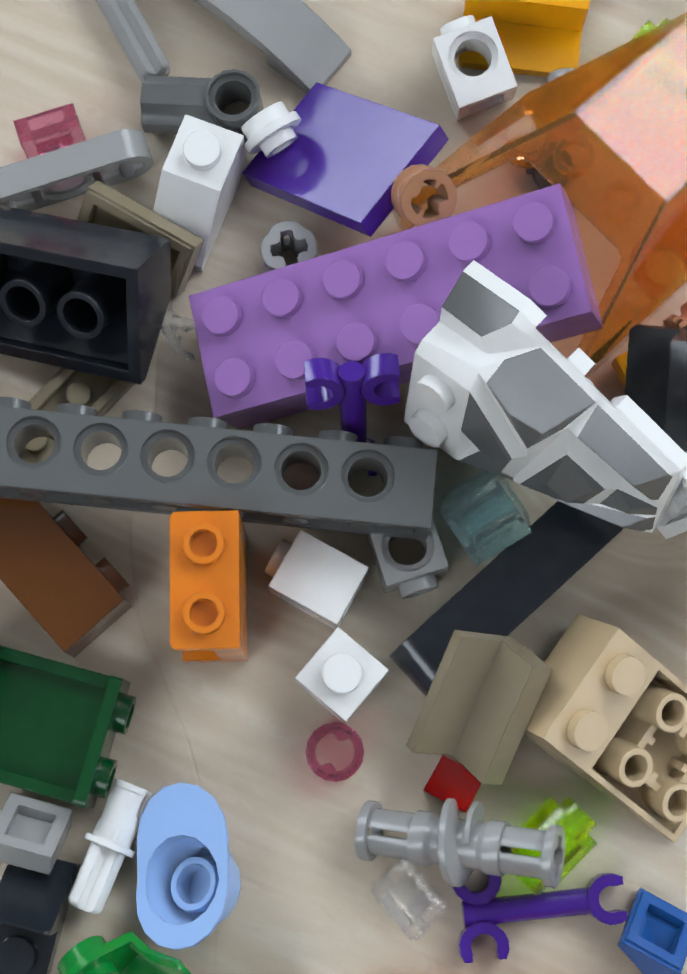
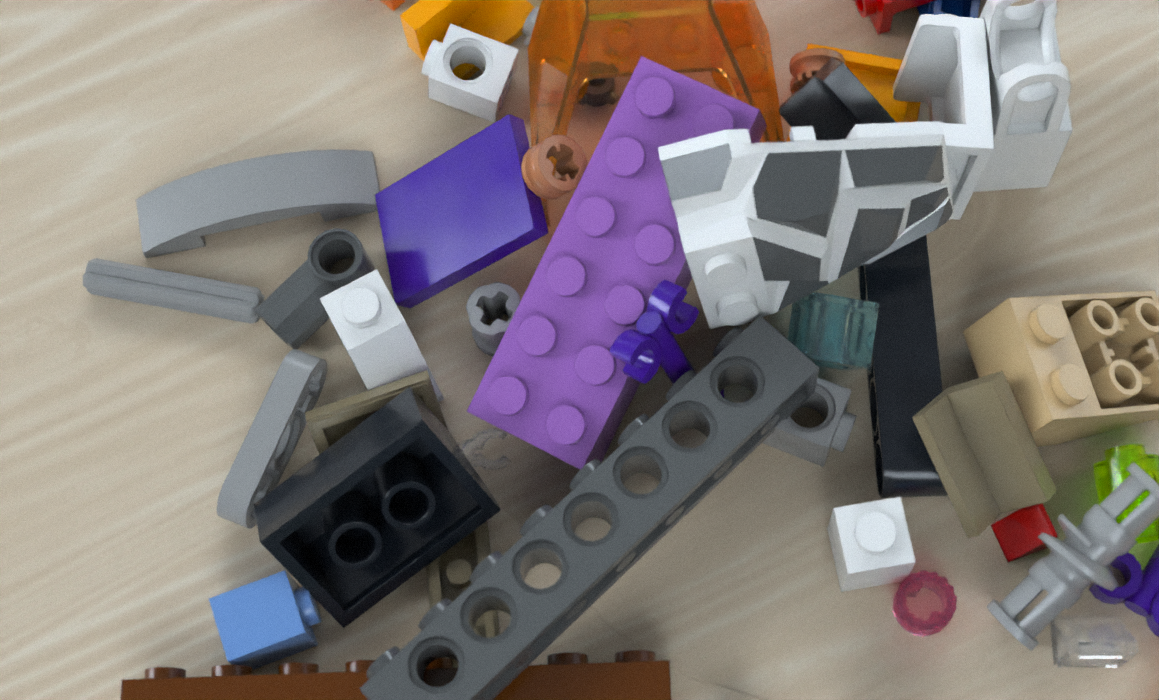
camera: 40 degrees left, 10 degrees down
(49, 130) = (231, 418): clear pink plate -> none
(208, 586) = (721, 580): orange panel -> none
(271, 130) = (388, 249): white plate -> none
(315, 578) = (774, 502): white brick -> none

